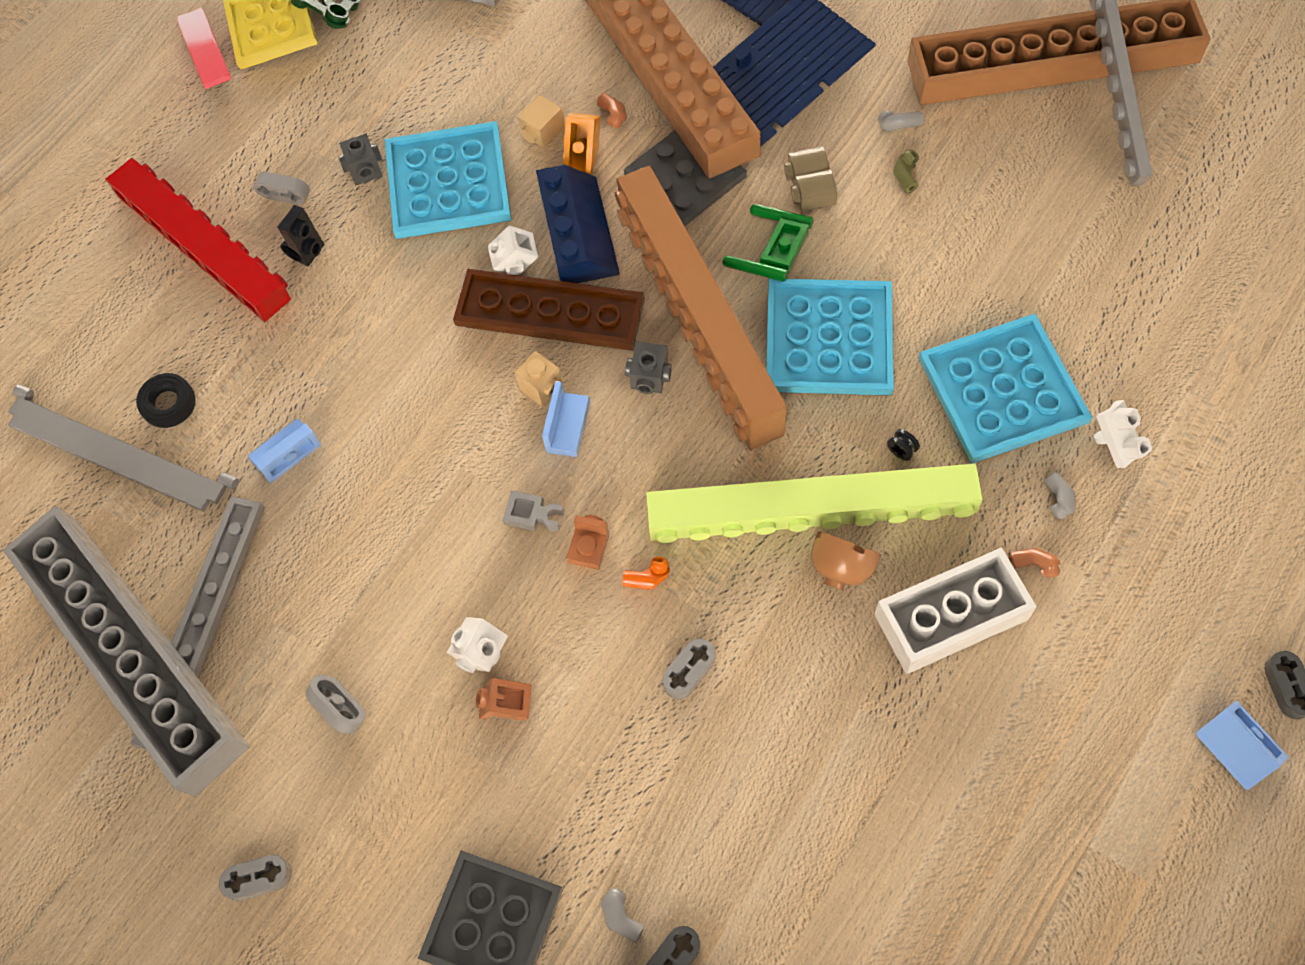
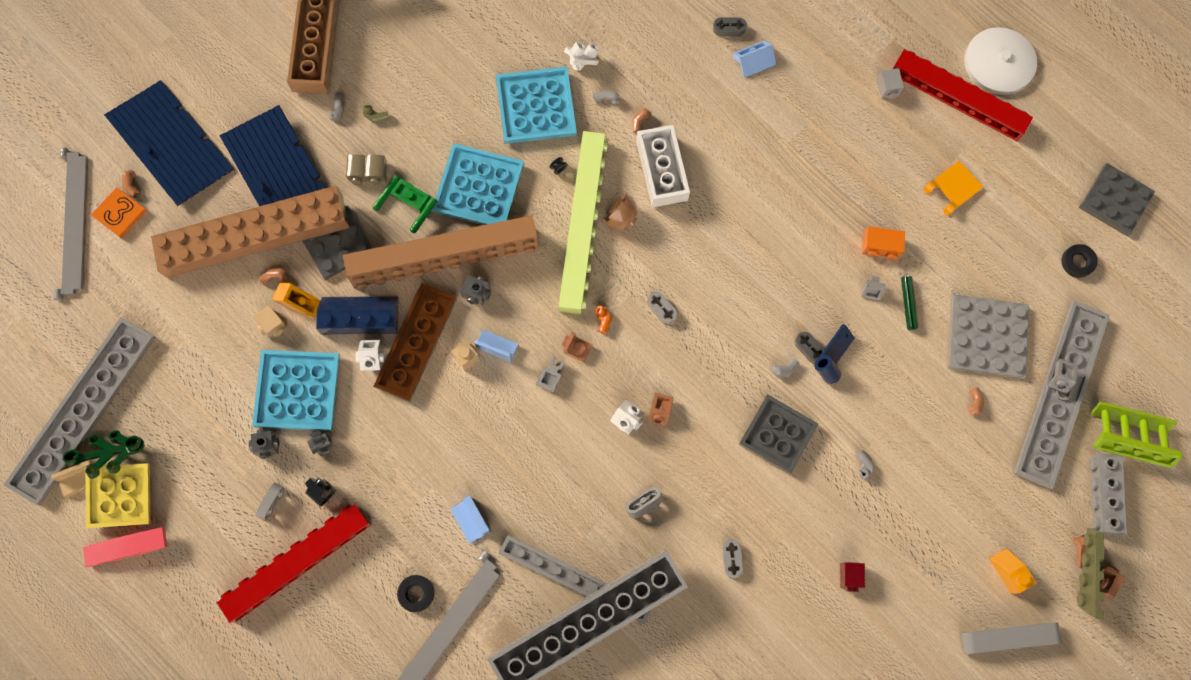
camera: 90 degrees left, 10 degrees up
(371, 223) = (319, 443): none -> dark grey gear

